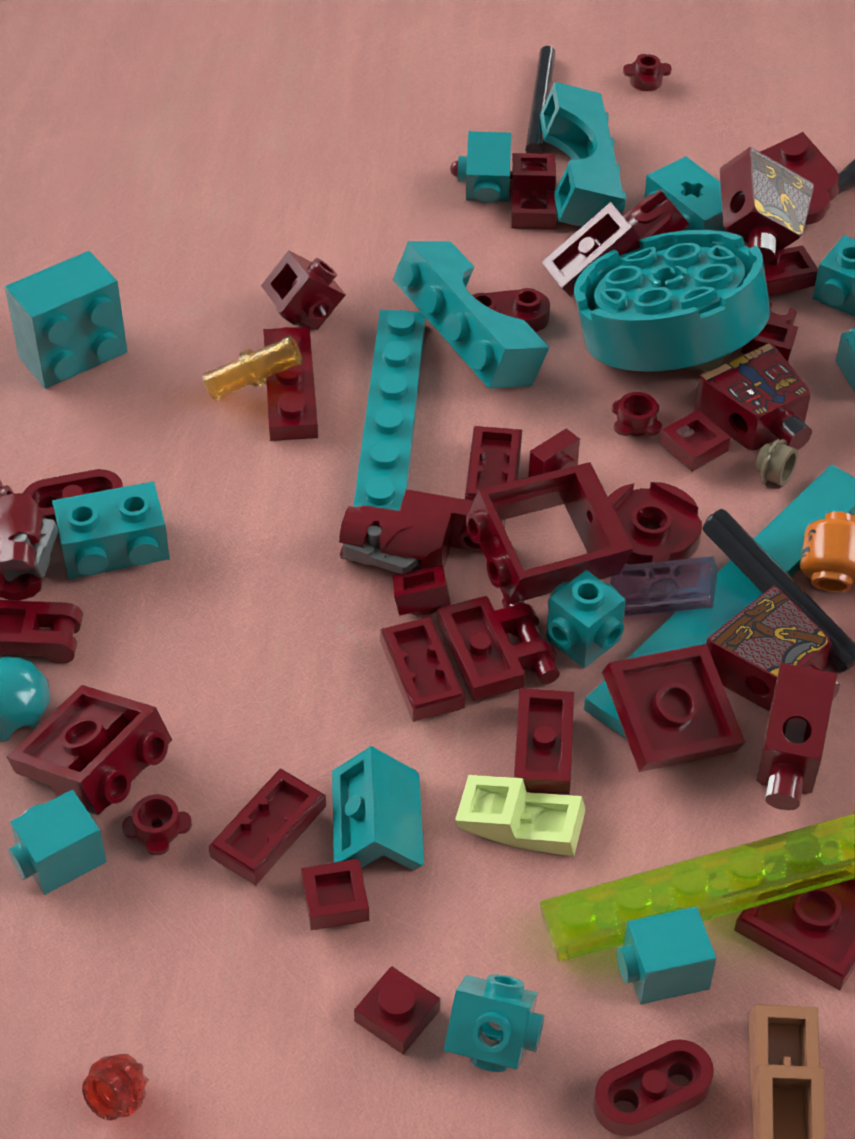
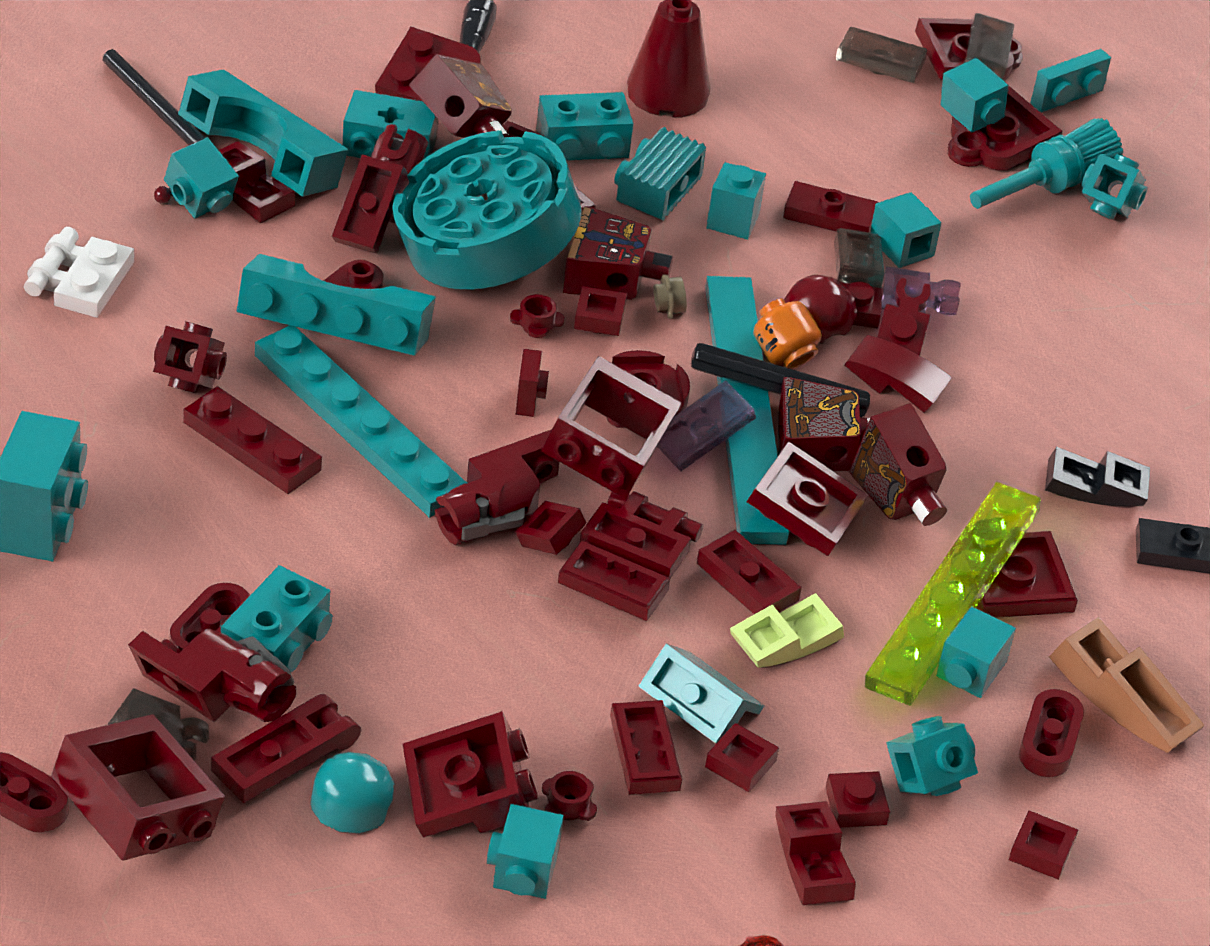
camera: 50 degrees left, 5 degrees down
(252, 368) = (227, 440): clear yellow pin -> none
(296, 1030) = (813, 853): none -> dark red slope
(327, 202) = (92, 273): none -> white plate
(493, 458) = (488, 411): dark red plate -> none
(585, 618) = (685, 475): teal brick -> none
(647, 72) = (214, 34): dark red plate -> none

